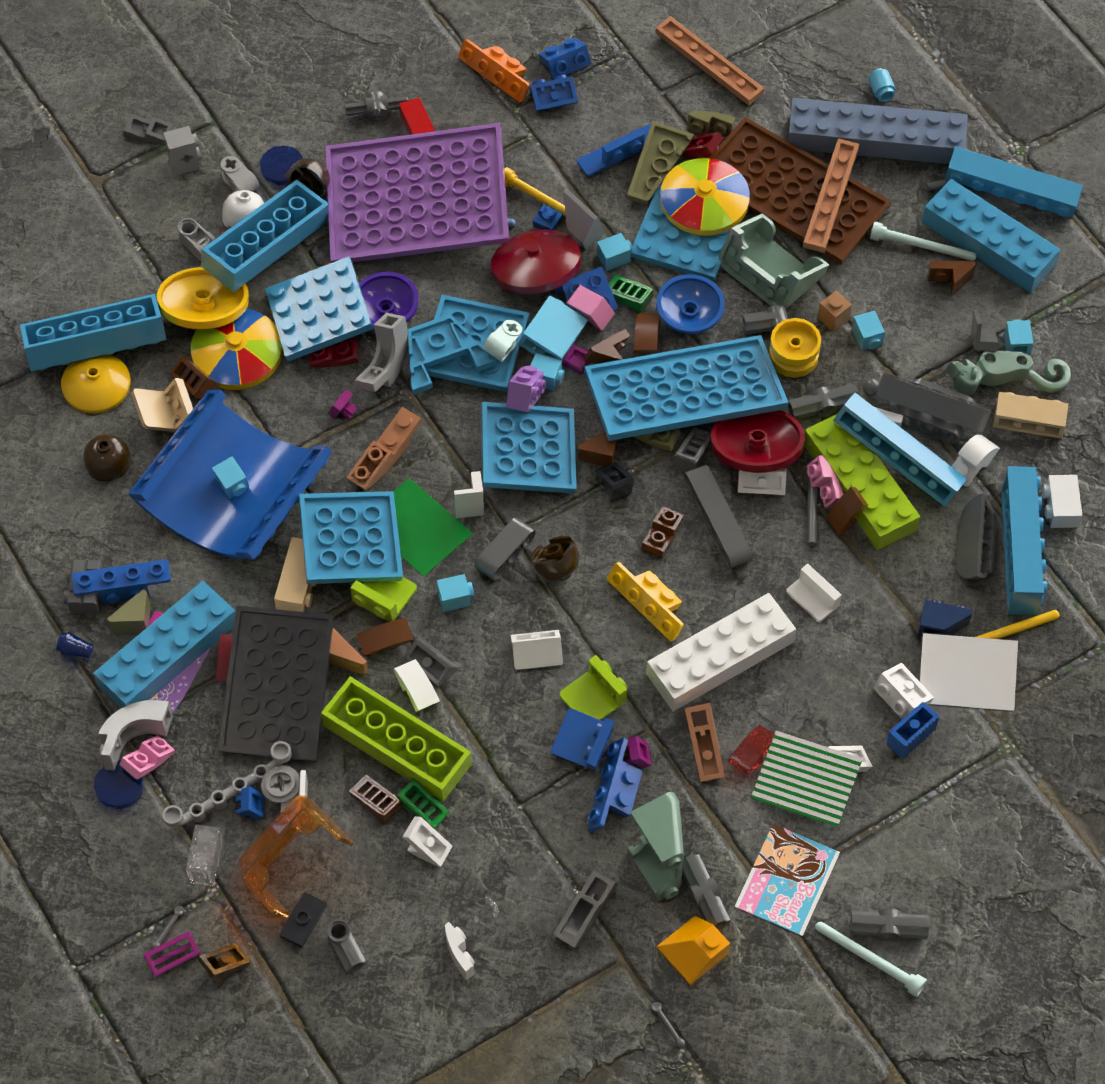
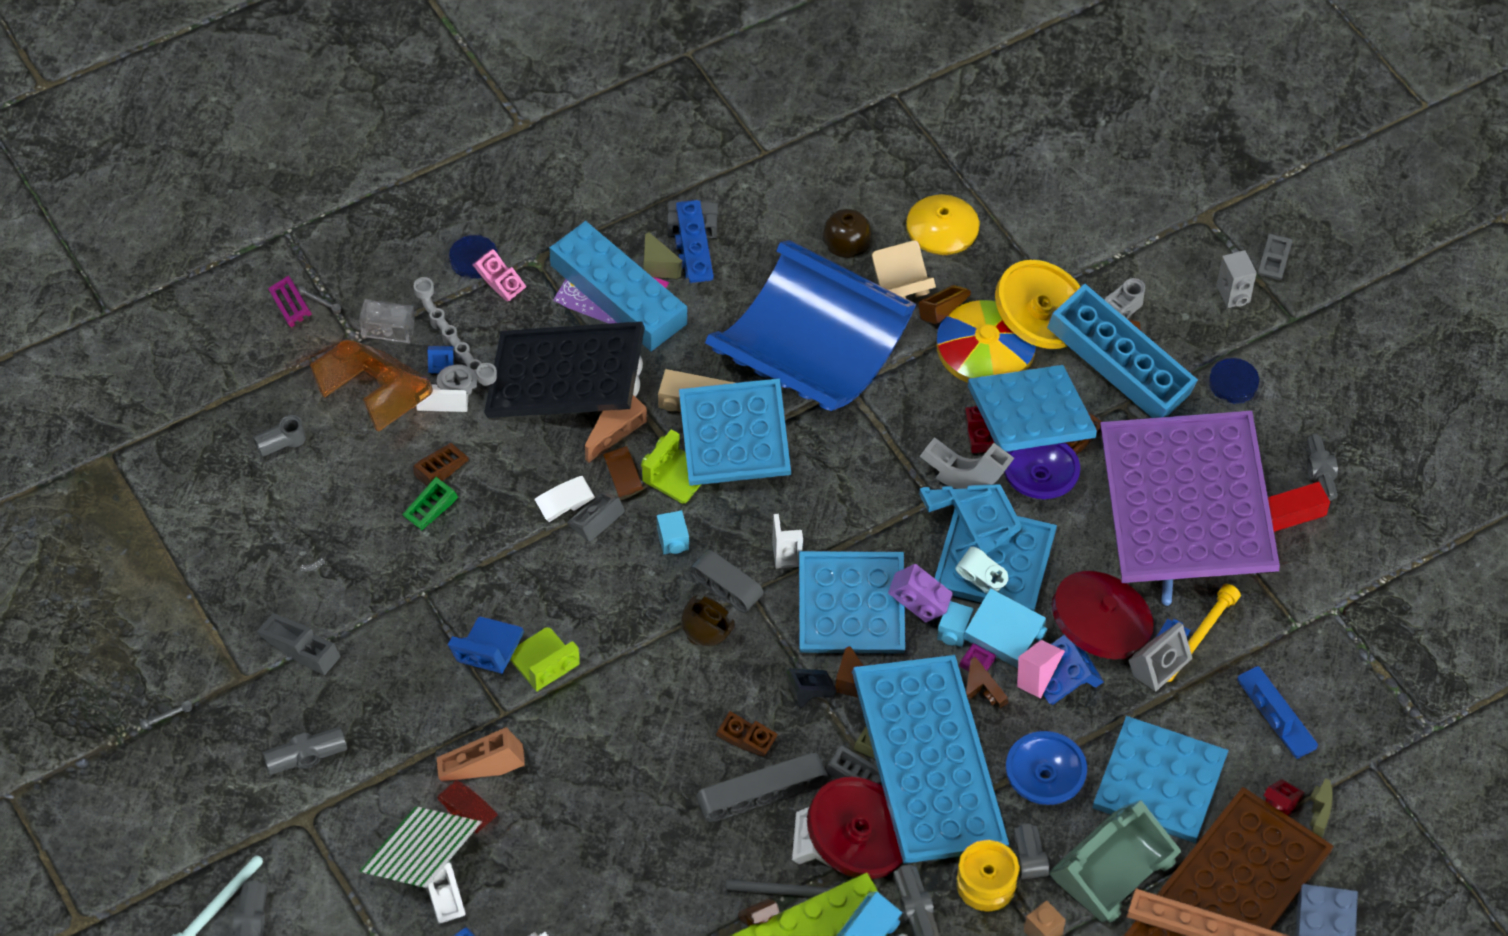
camera: 90 degrees right, 5 degrees down
(74, 646) = (627, 212): clear blue cone -> none
(92, 332) = (991, 206): dark azure brick -> none
(129, 722) = (531, 253): light grey arch -> none
(224, 962) = (271, 335): dark brown slope -> none
(231, 477) = (815, 333): medium azure brick -> none
(237, 175) = (1210, 336): light grey piece -> none
(239, 205) = (1167, 335): white cylinder -> none
(303, 920) = (314, 406): black plate -> none
(311, 174) = (1210, 397): dark brown cylinder -> none
(343, 405) = (908, 434): magenta tile -> none
(386, 451) = (847, 471): nougat slope -> none
(396, 738) = (499, 476): lime brick -> none
(425, 528) = (749, 507): green sticker -> none
(426, 842) = (383, 503): white slope -> none
(456, 946) = (271, 526): white slope -> none
(497, 68) = (1391, 591): orange bracket -> none
(537, 649) = (604, 607): white panel -> none
(553, 93) = (1355, 644): blue bracket -> none
(565, 57) = (1412, 659): blue bracket -> none
(614, 251) = (1124, 697): medium azure brick -> none
(616, 788) = (433, 678): blue bracket -> none
(637, 304) = (1054, 725): green slope -> none
(638, 752) = (471, 696): magenta tile -> none
(647, 333) = (1007, 725): reddish brown slope -> none
(649, 598) = (663, 719): yellow bracket -> none
(659, 155) = (1262, 747): olive wing -> none
(661, 846) = (340, 687): sand green windscreen -> none
(694, 948) = (244, 741): light orange slope -> none
(704, 196) = (1205, 792): dish -> none
(709, 60) = (1421, 814): nougat plate -> none
(720, 652) = (587, 780): white brick -> none
(787, 879) = (317, 836): sticker -> none
(814, 594) = (659, 881): white panel -> none
(823, 476) = (811, 888): bright pink slope -> none

